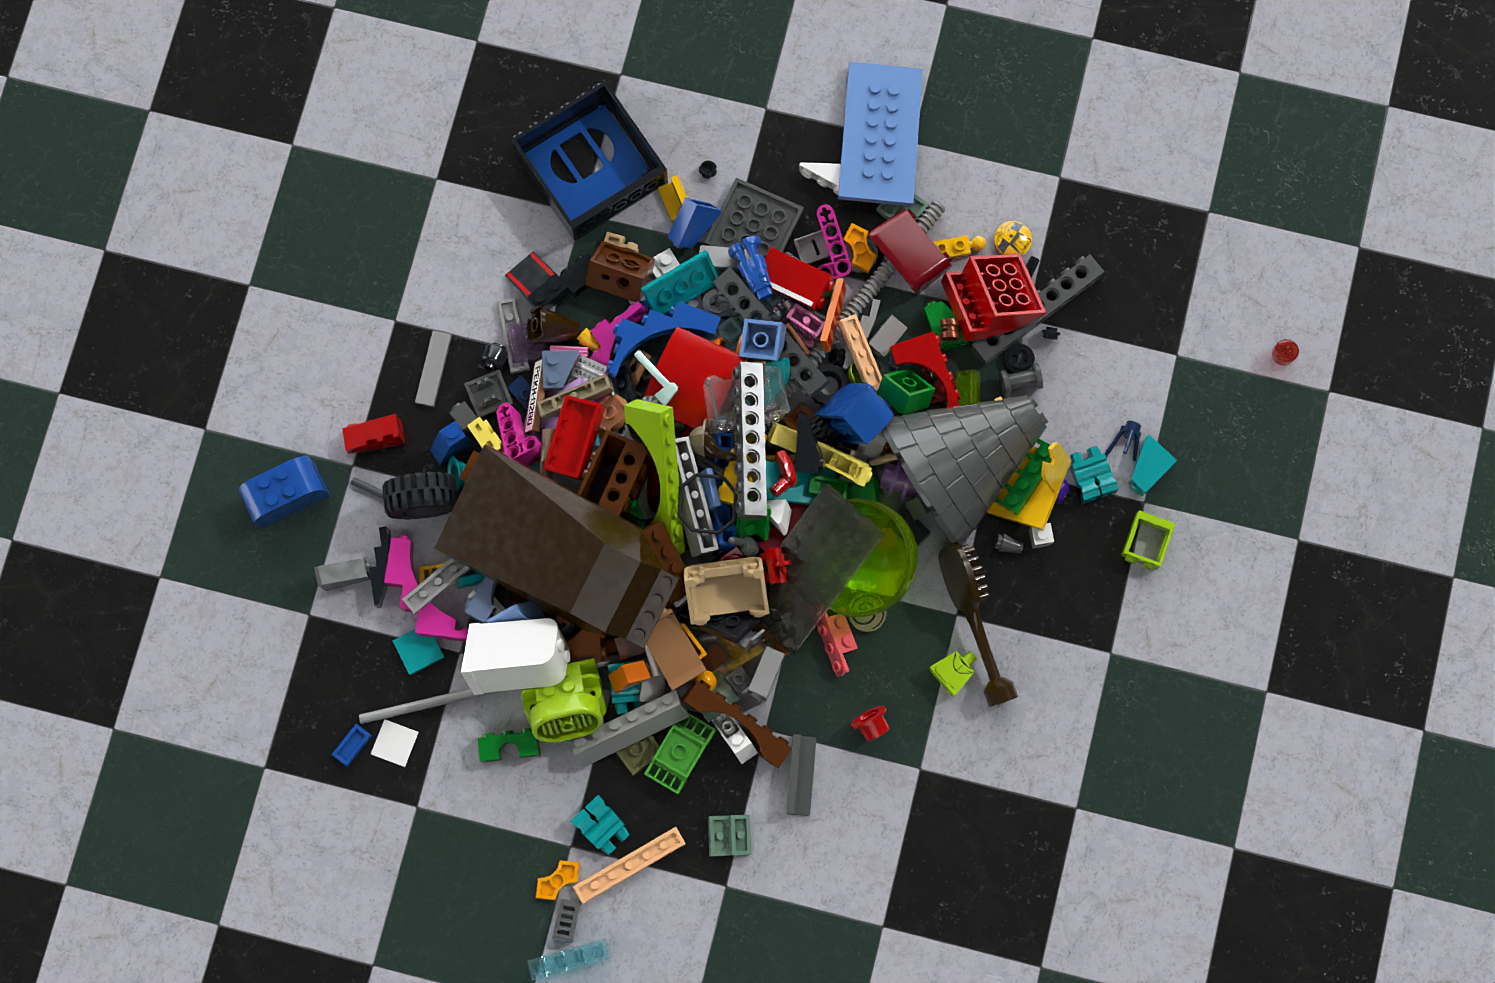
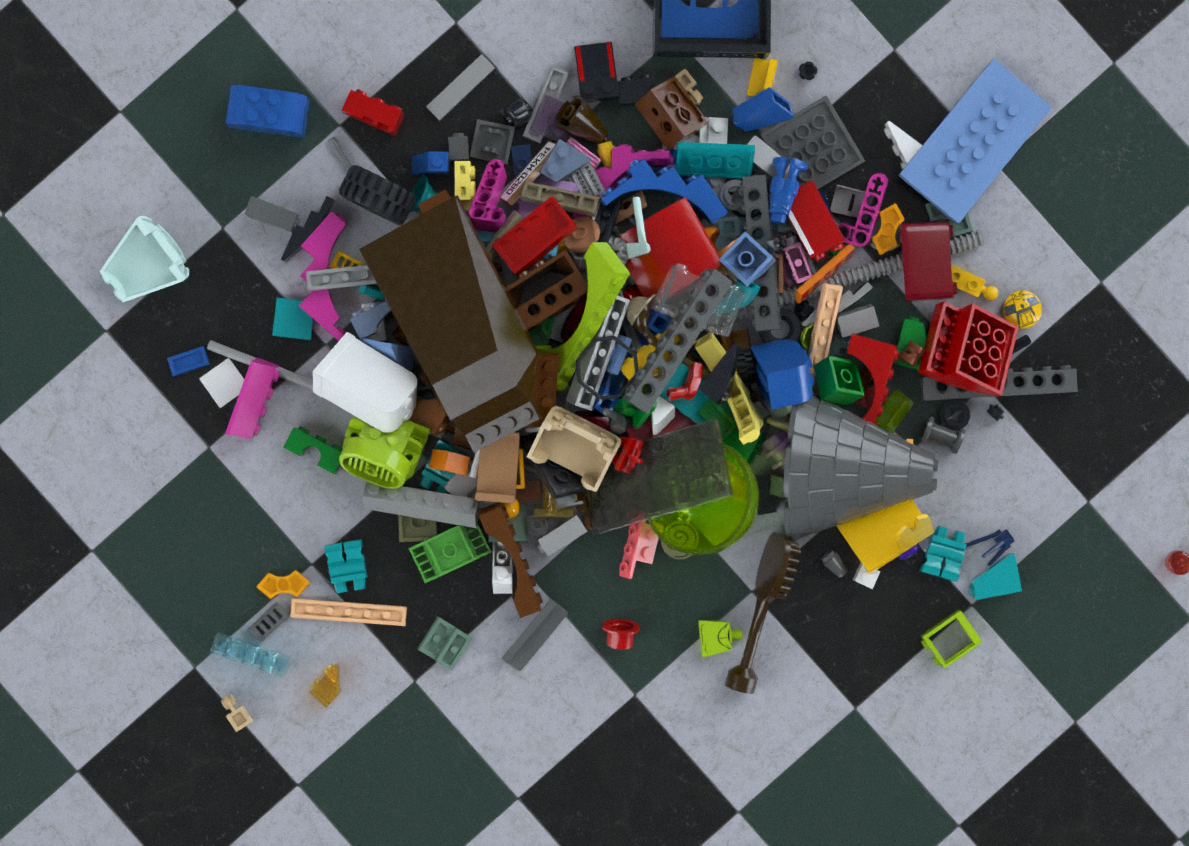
camera: 30 degrees right, 10 degrees up
(258, 685) = (144, 261): none -> light aqua cone
(427, 737) = (253, 398): none -> dark pink slope
(655, 941) = (328, 687): none -> clear yellow slope
(1027, 481) = (887, 524): green hinge -> none

